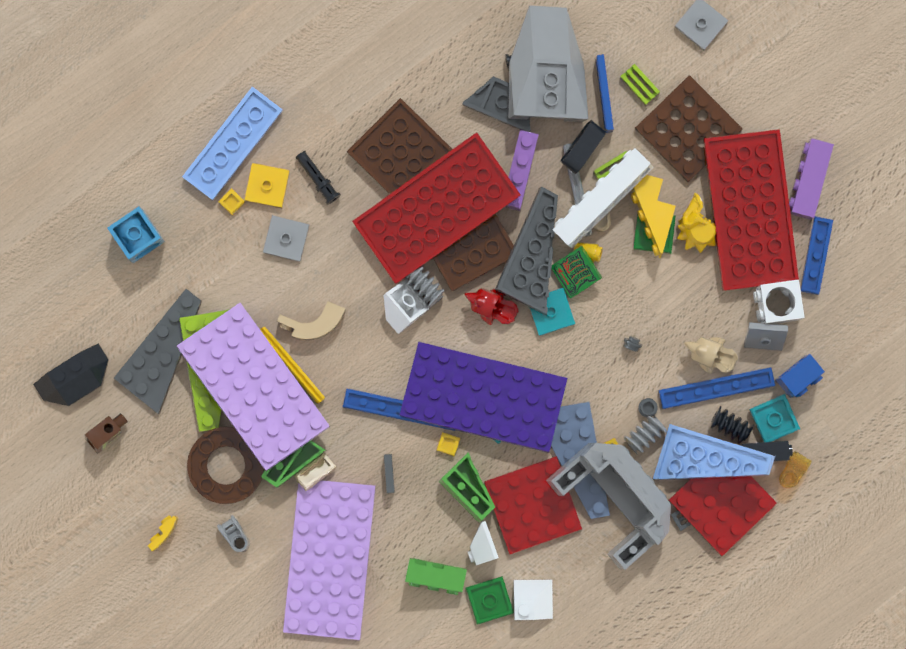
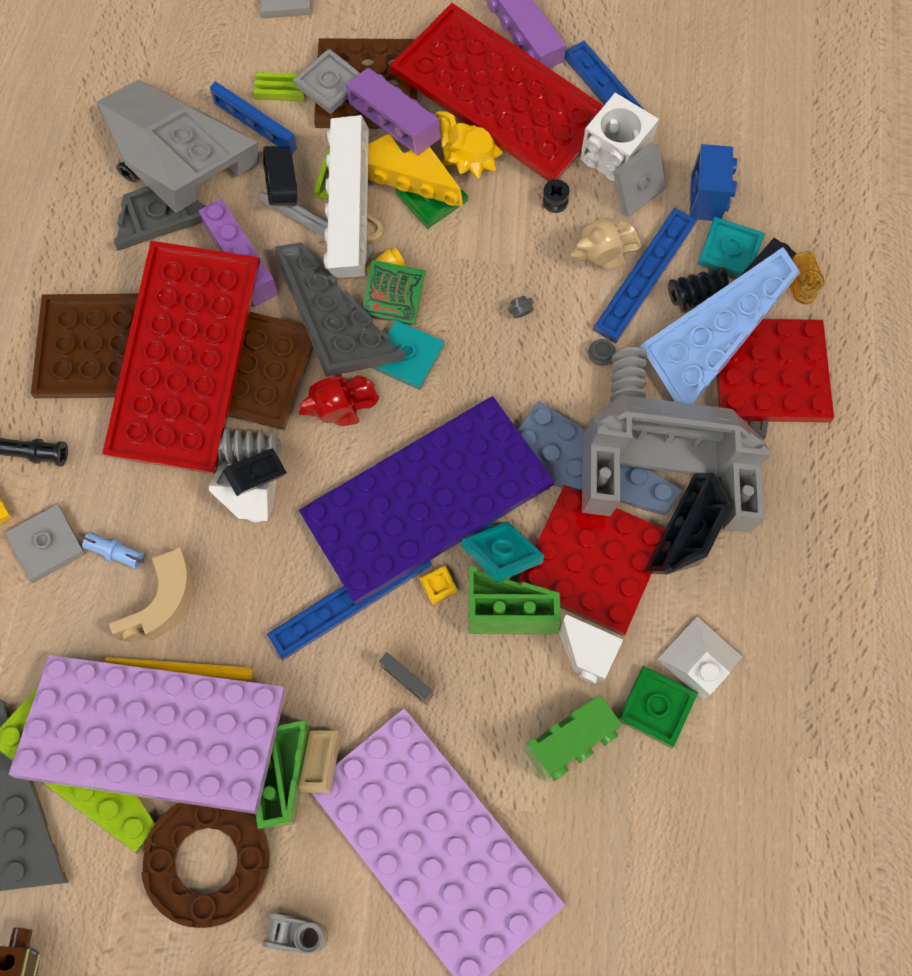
camera: 45 degrees left, 15 degrees down
(314, 274) = (113, 550): none -> light blue pin
(412, 308) = (254, 472): none -> black plate
(491, 460) = (502, 551): none -> teal plate
(590, 538) = (692, 526): none -> black wedge
(664, 114) = (326, 80): none -> light grey plate
(675, 170) = (393, 111): none -> medium lavender brick
(713, 299) = (556, 203): none -> black wheel

